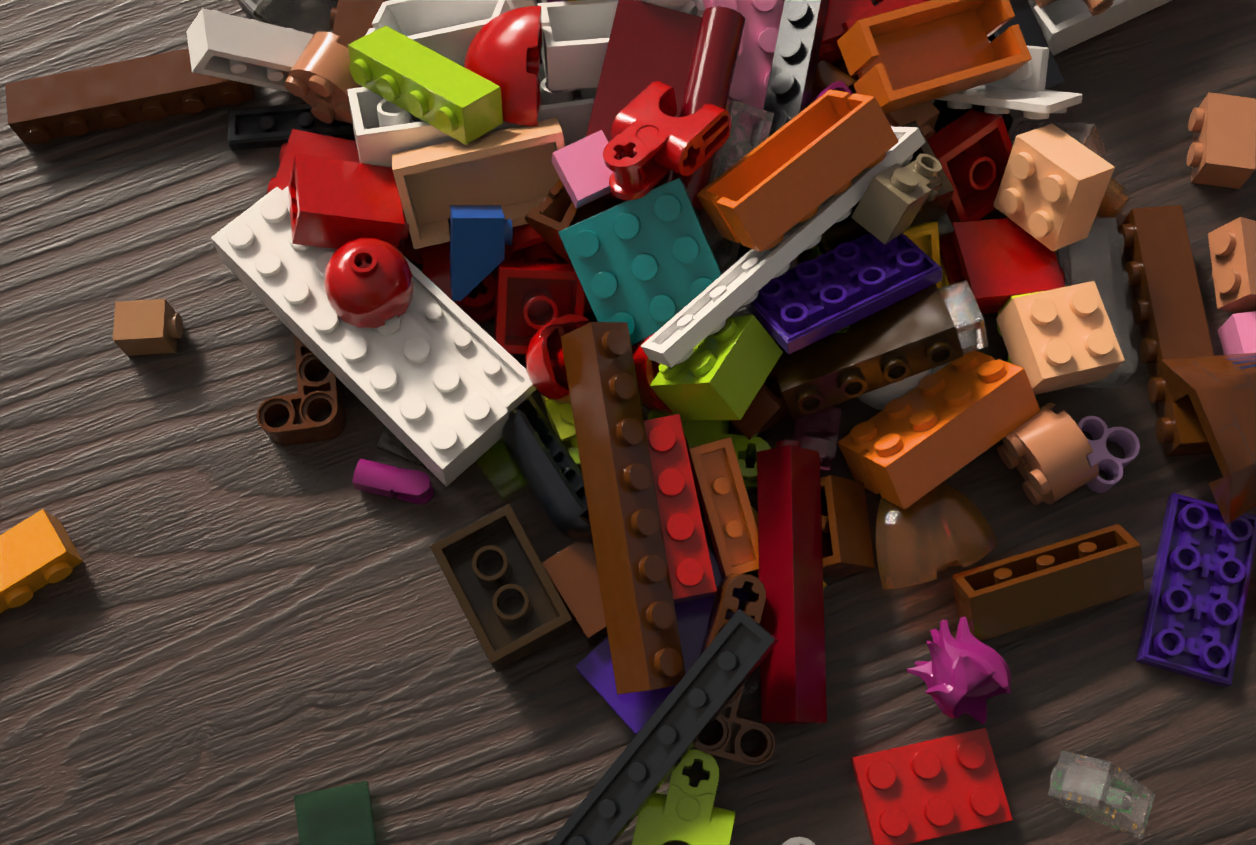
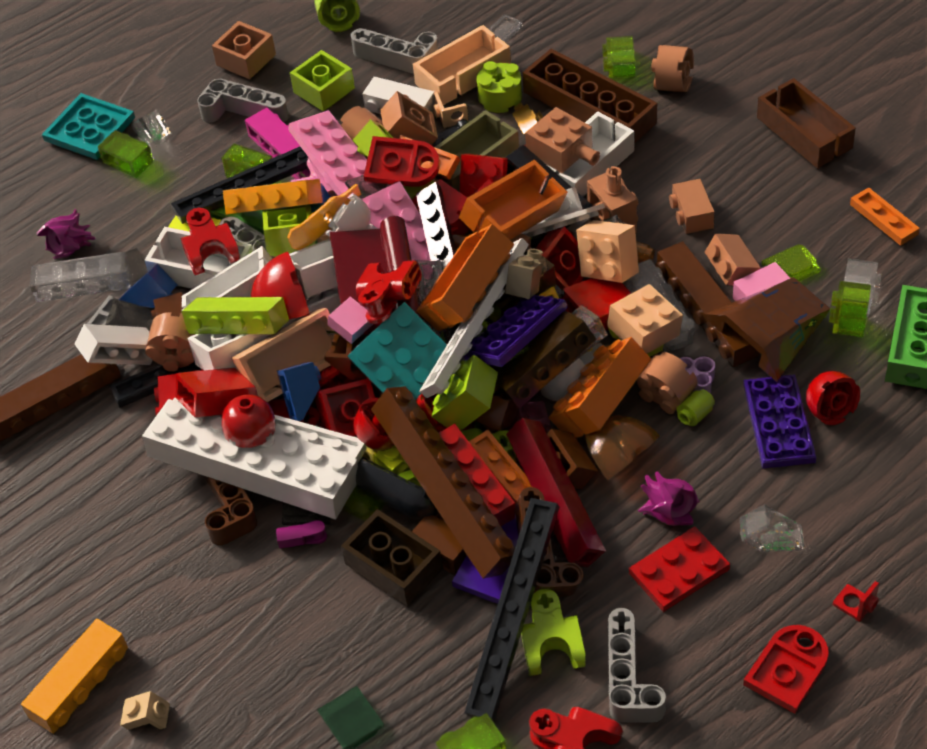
camera: 20 degrees left, 20 degrees down
(57, 688) = (144, 710): none -> tan bracket
(146, 327) = (113, 510): medium nougat brick -> none
(1049, 582) = (696, 441): reddish brown brick -> none
(1076, 513) = (695, 407): none -> lime brick
(1103, 75) = (617, 199): none -> nougat brick

